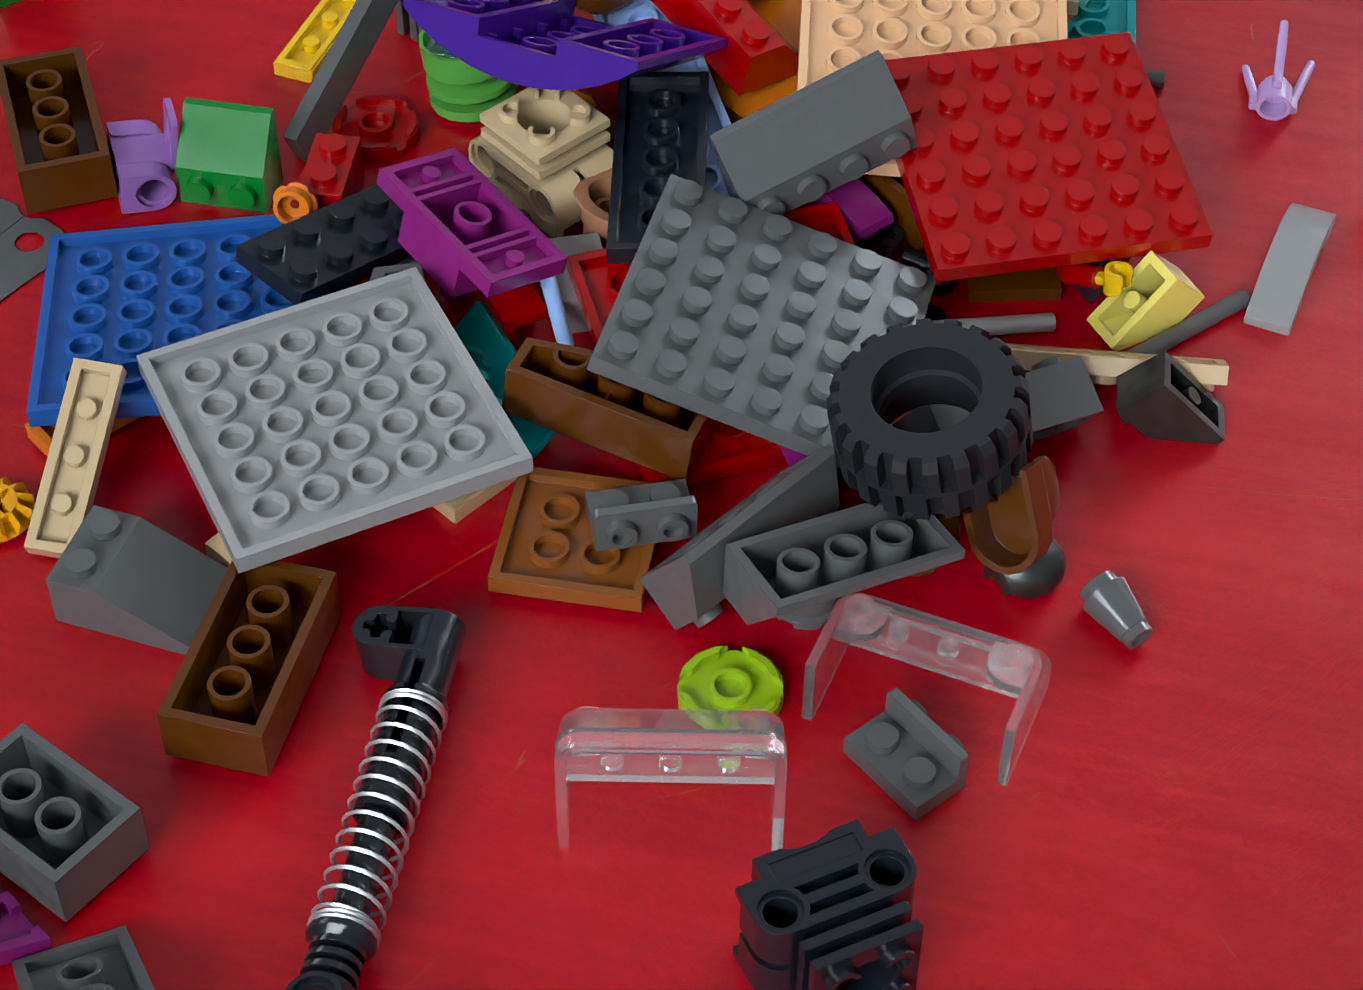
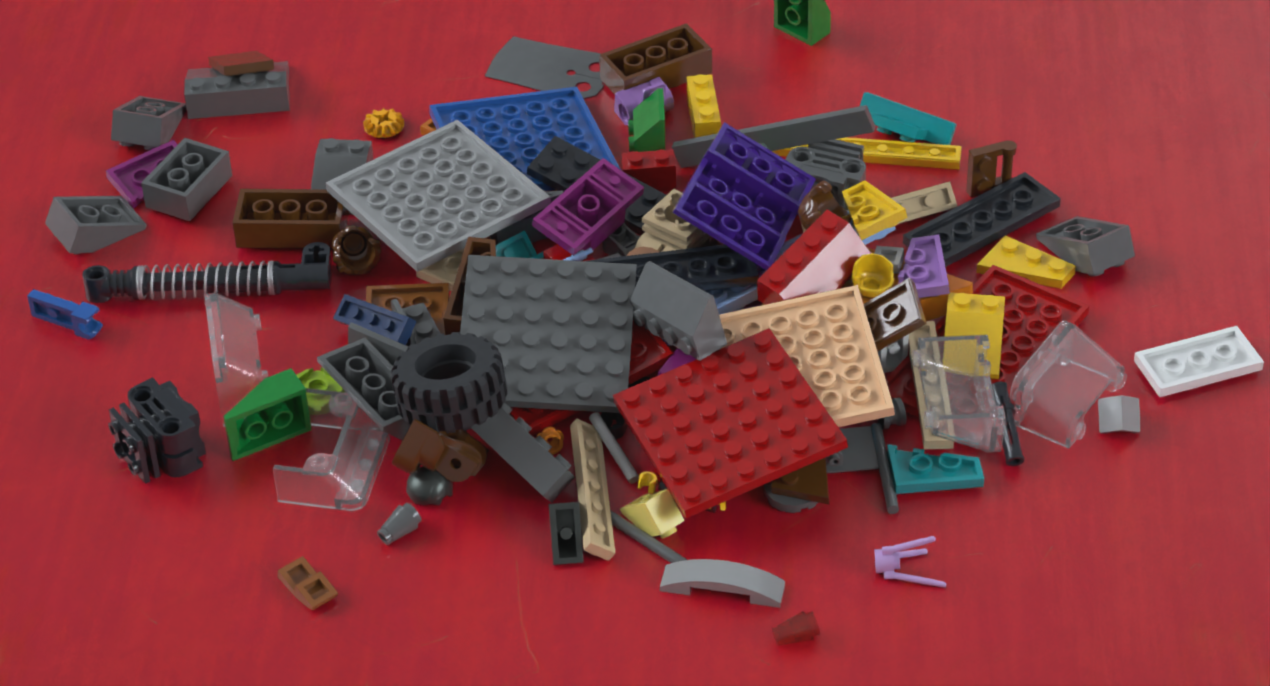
camera: 80 degrees right, 5 degrees down
(75, 455) = (408, 127): tan plate -> none
(162, 80) = (703, 105): none -> yellow brick
(283, 207) = (612, 153): orange plate -> none
(387, 571) = (355, 251): none -> reddish brown hair
(631, 554) = (375, 318): none -> dark blue plate
(828, 740) = (268, 415): none -> green slope
(909, 755) = (286, 451): dark grey bracket -> none
(1240, 758) = (306, 584): none -> dark orange slope

